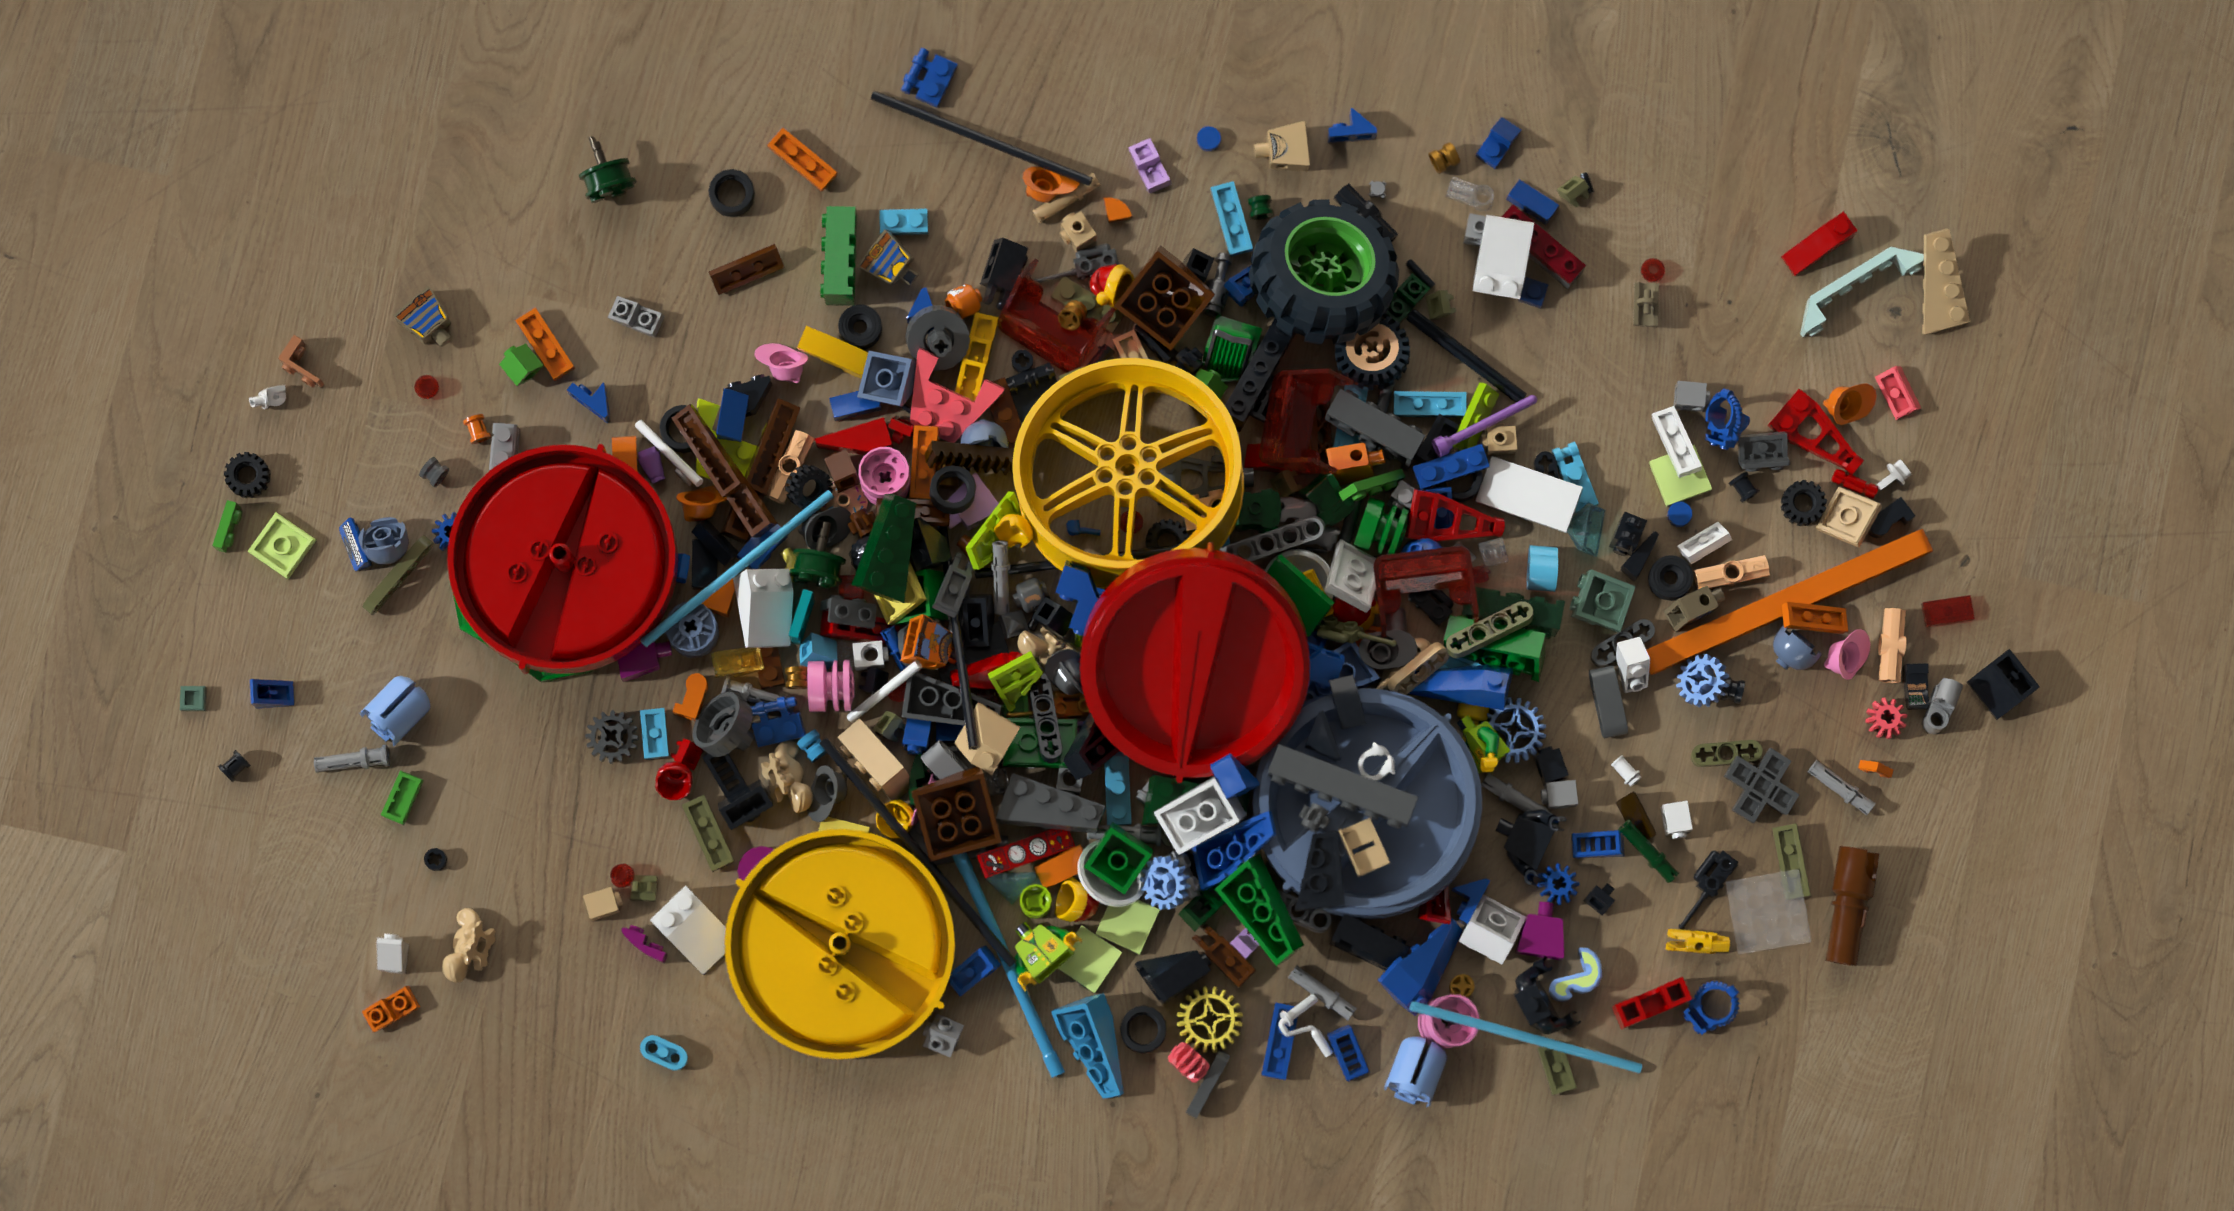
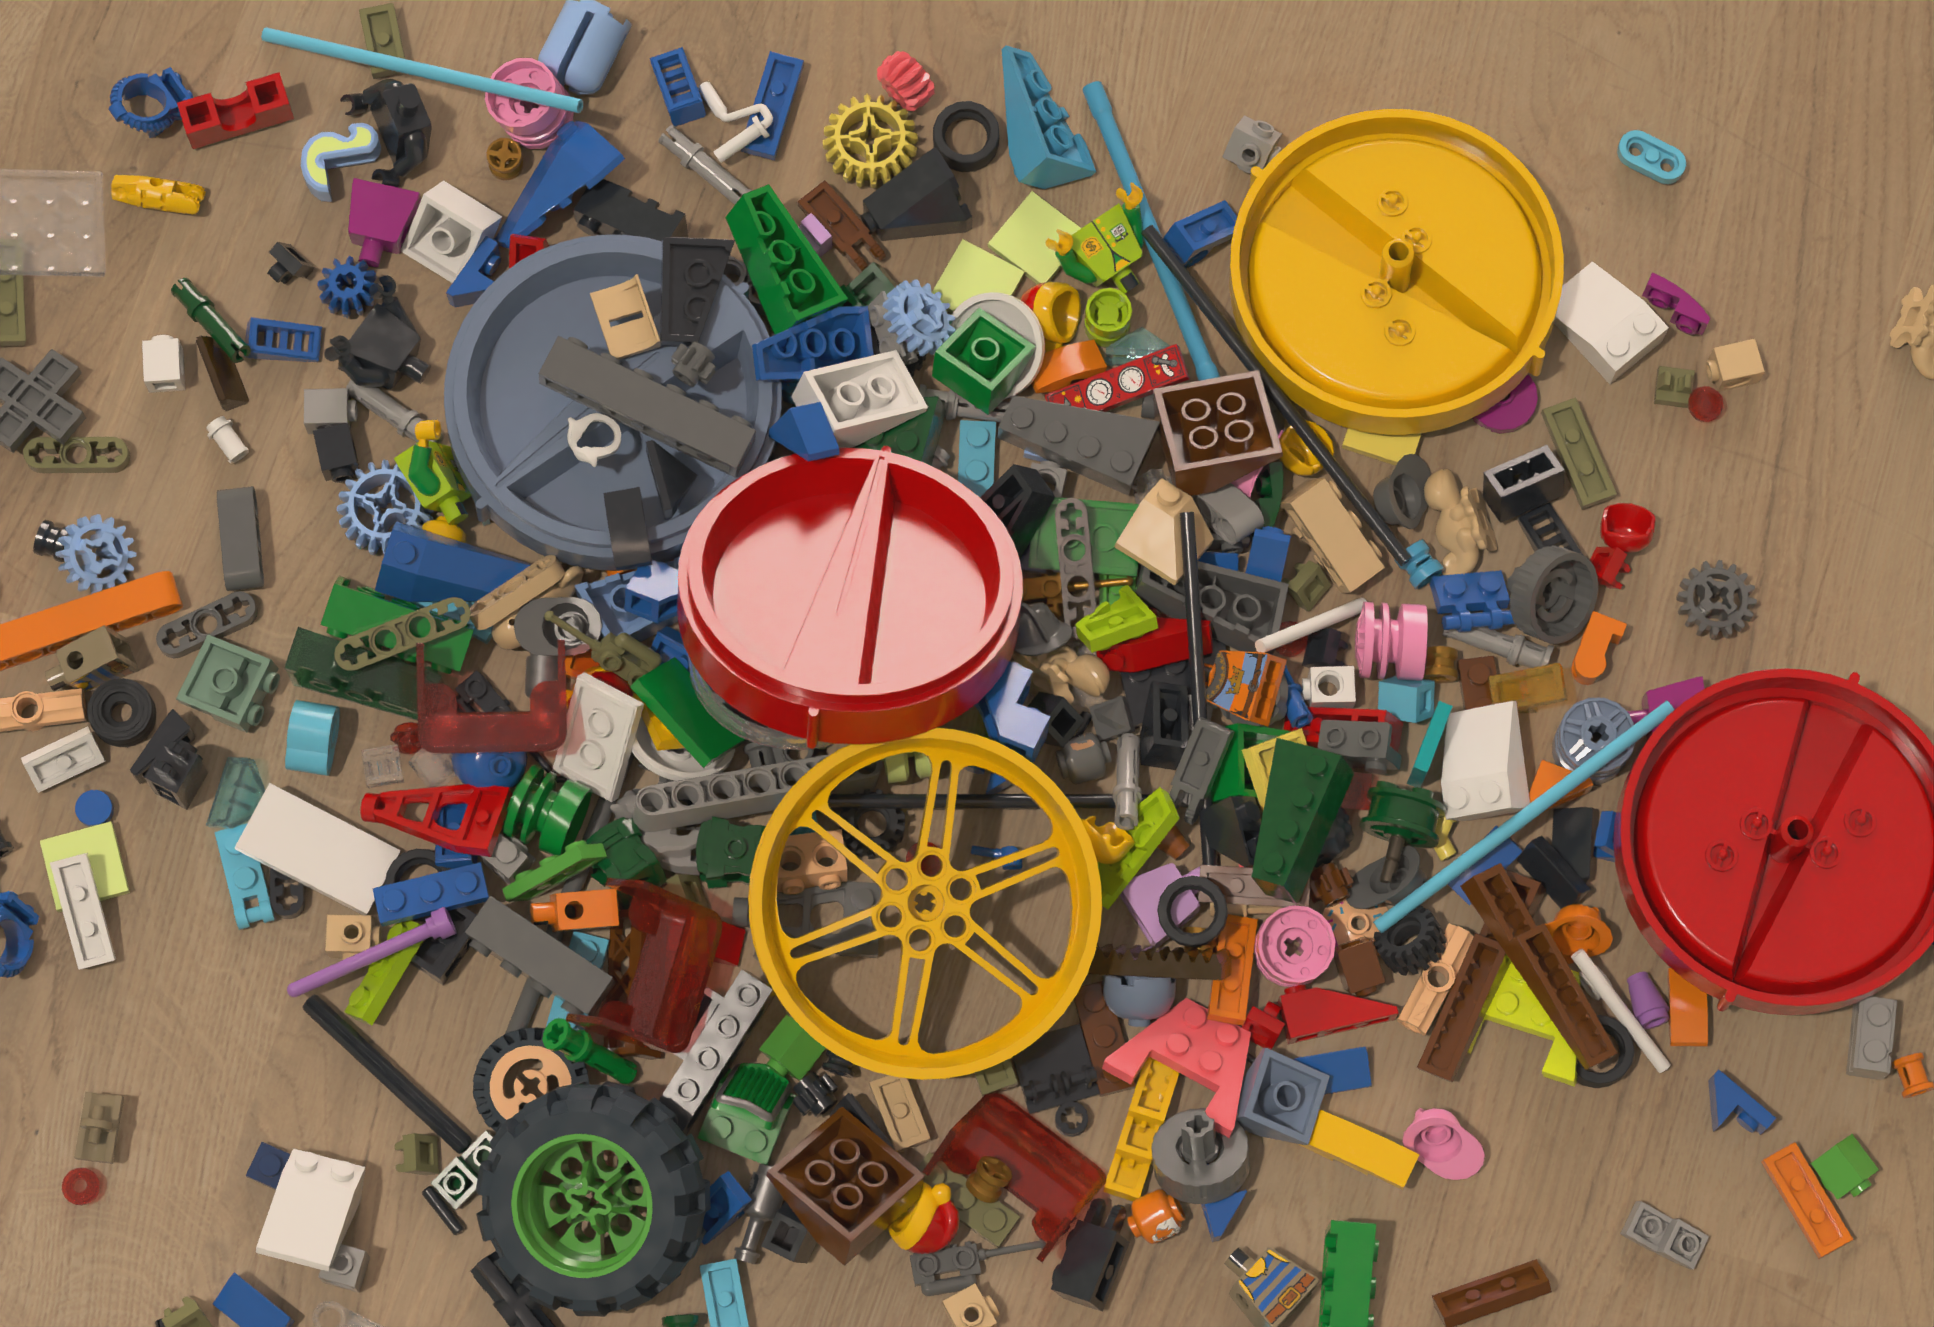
camera: 175 degrees left, 5 degrees down
(654, 733) = (1653, 601): medium azure plate -> none
(732, 415) = (1523, 1052): blue slope -> none
(756, 389) = (1501, 1089): black slope -> none
(844, 653) = (1366, 692): clear tile -> none
(860, 313) = (1318, 1168): black tyre -> none
(1104, 353) = (950, 1111): black pin -> none
(1208, 1084) = (887, 44): dark grey beam -> none
(1356, 369) = (580, 1047): none -> green pin
(1429, 404) = (452, 1002): medium azure plate -> none
(1549, 252) = (243, 1228): dark red piece -> none
(1633, 664) = (195, 583): white slope -> none
(1691, 396) = (50, 982): light grey brick -> none
(1711, 884) = (120, 278): black piece -> none

